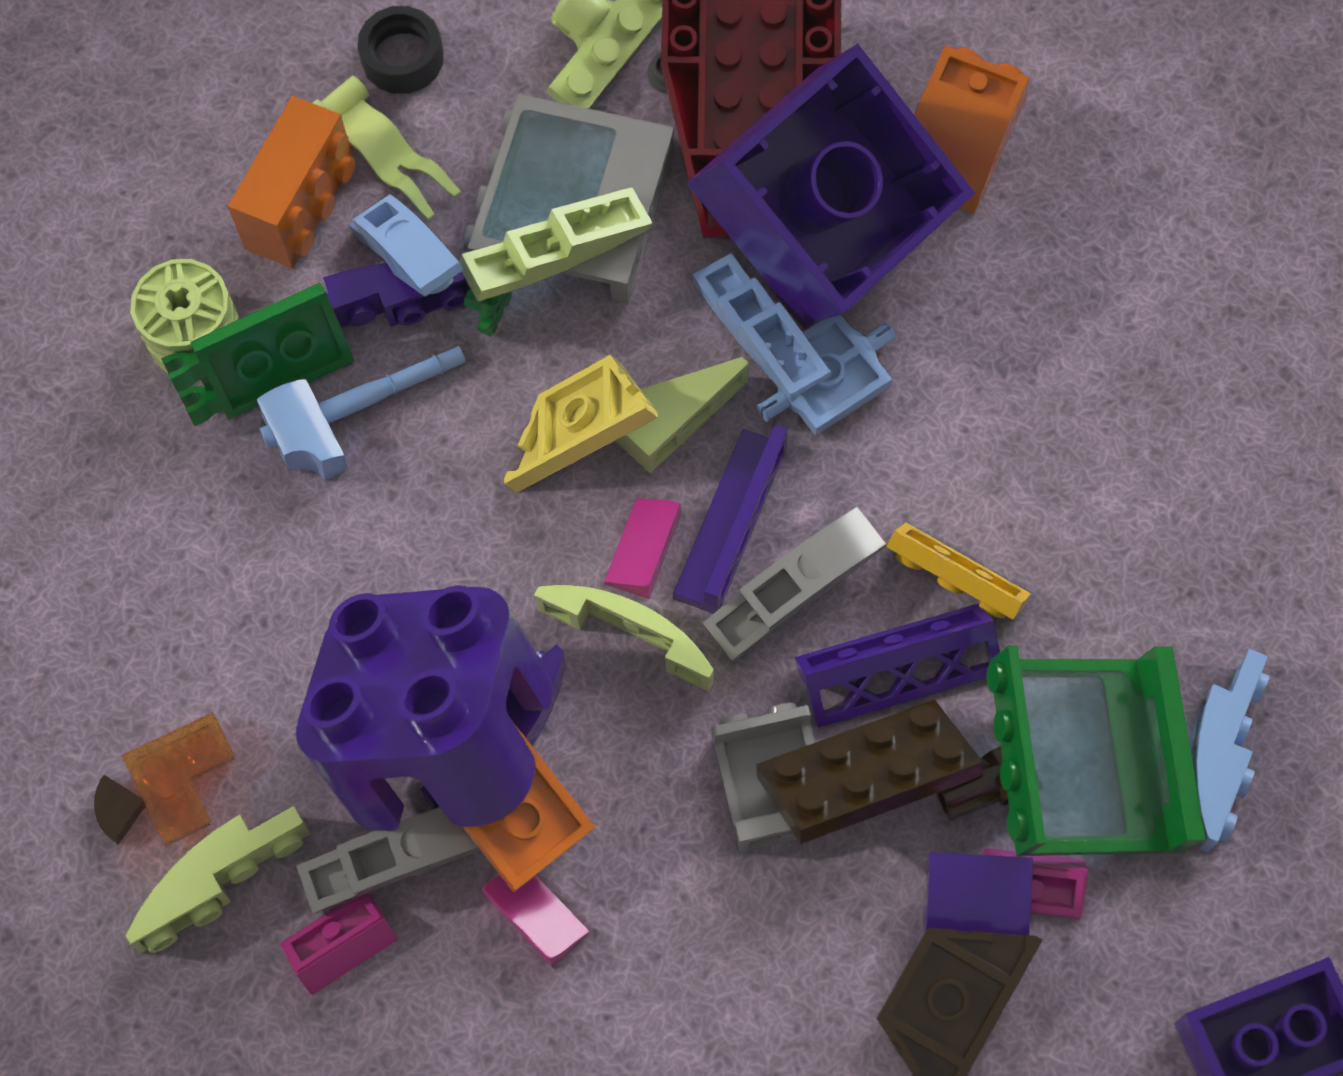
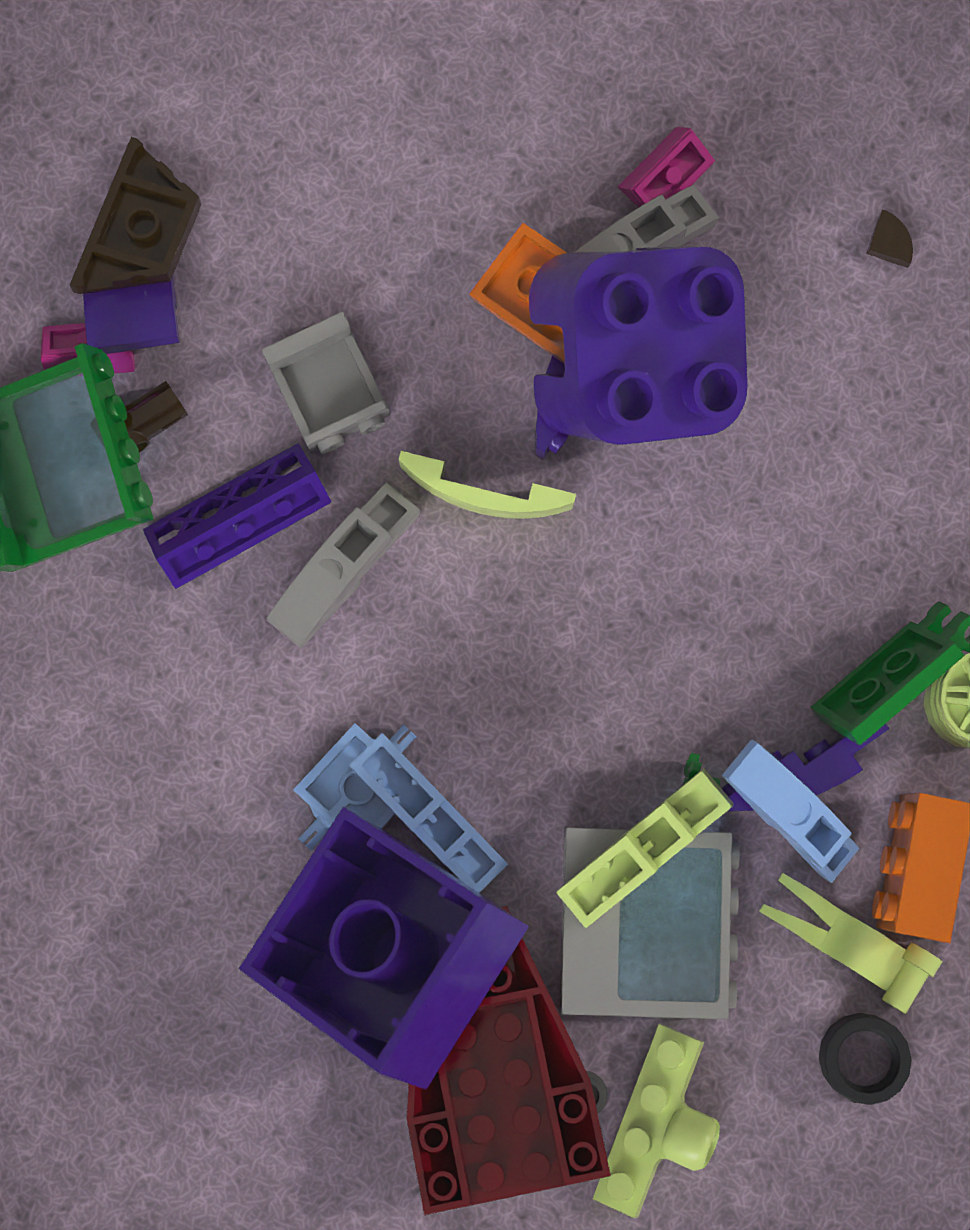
camera: 160 degrees right, 15 degrees up
(165, 770) = (857, 276): clear orange plate -> none
(194, 885) = (795, 185): yellowish green slope -> none
(302, 426) = (840, 624): light blue piece -> none
(537, 917) = (495, 219): dark pink slope -> none
(579, 419) = (575, 675): light yellow wing -> none
(643, 546) = (492, 578): dark pink slope -> none
(681, 409) = (500, 706): yellowish green slope -> none
(731, 519) = (416, 620): dark purple fence -> none
(868, 771) = (242, 398): dark brown plate -> none
(957, 572) = (197, 611): yellow plate -> none
(971, 113) = (270, 1087): orange piece -> none

